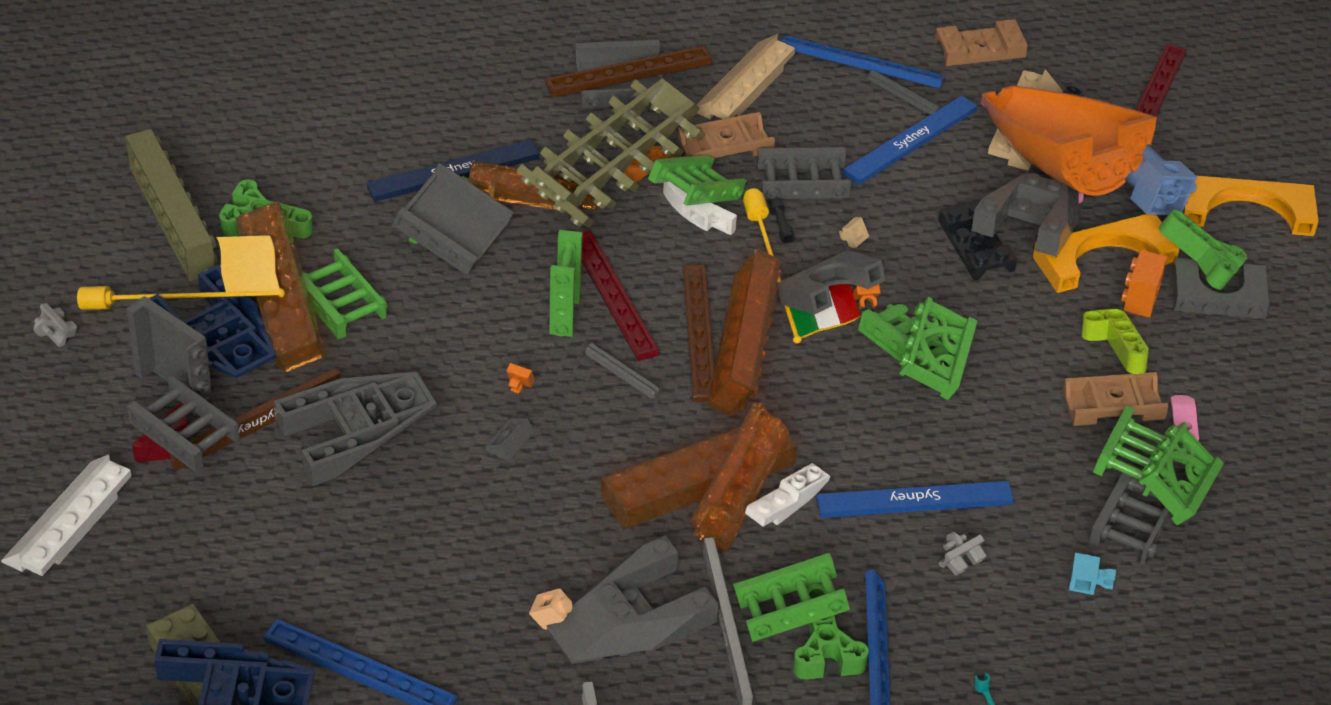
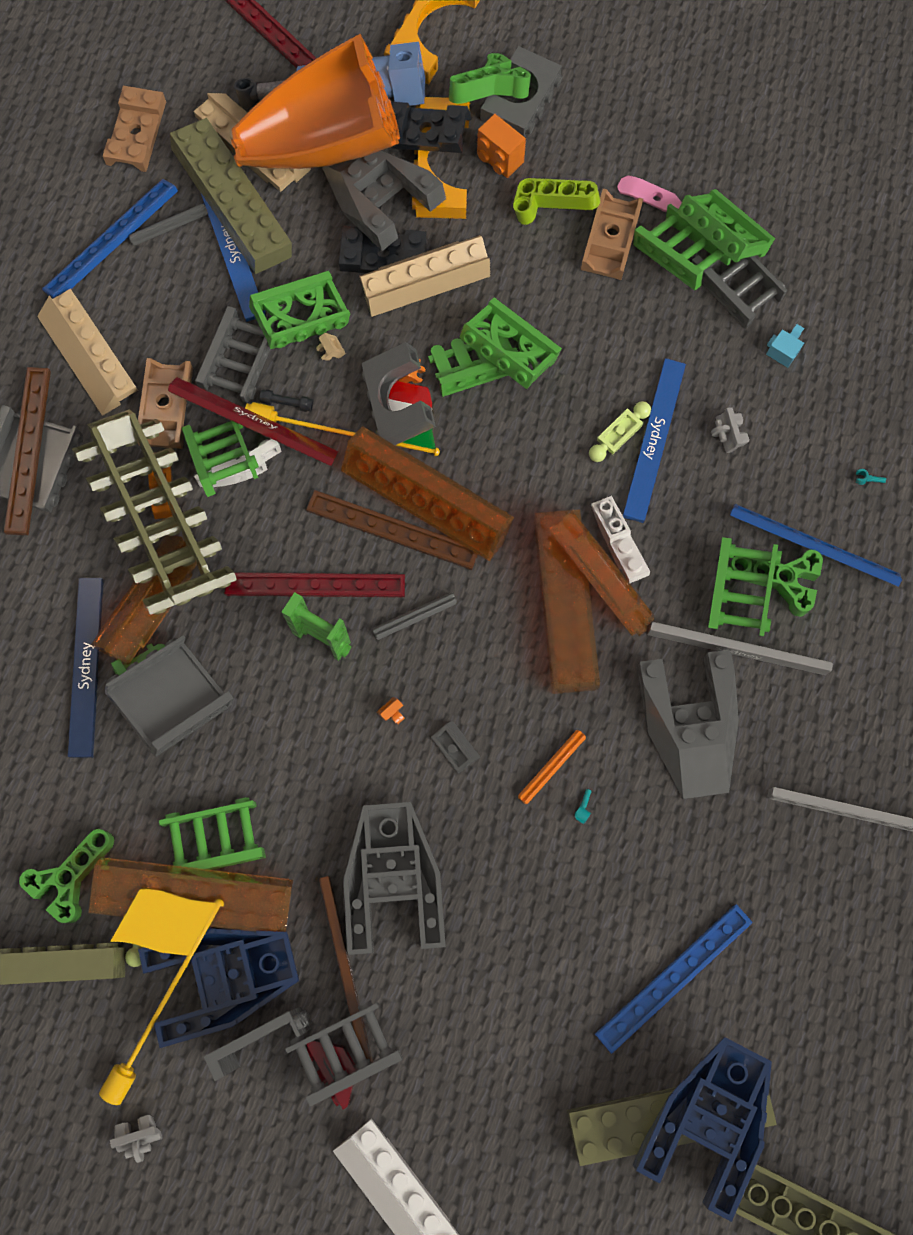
camera: 65 degrees left, 30 degrees up
(491, 548) = (582, 814): none -> teal hand
(526, 513) = (551, 767): none -> orange axle
(550, 607) = (678, 789): light nougat brick -> none
(741, 191) = (252, 421): none -> dark red tile
(874, 215) = (298, 329): none -> bright green fence
(904, 467) = (620, 431): none -> yellowish green plate
(953, 121) = (231, 195): none -> olive brick
(968, 271) = (425, 275): none -> tan slope
(1119, 218) = (445, 126): none -> black piece

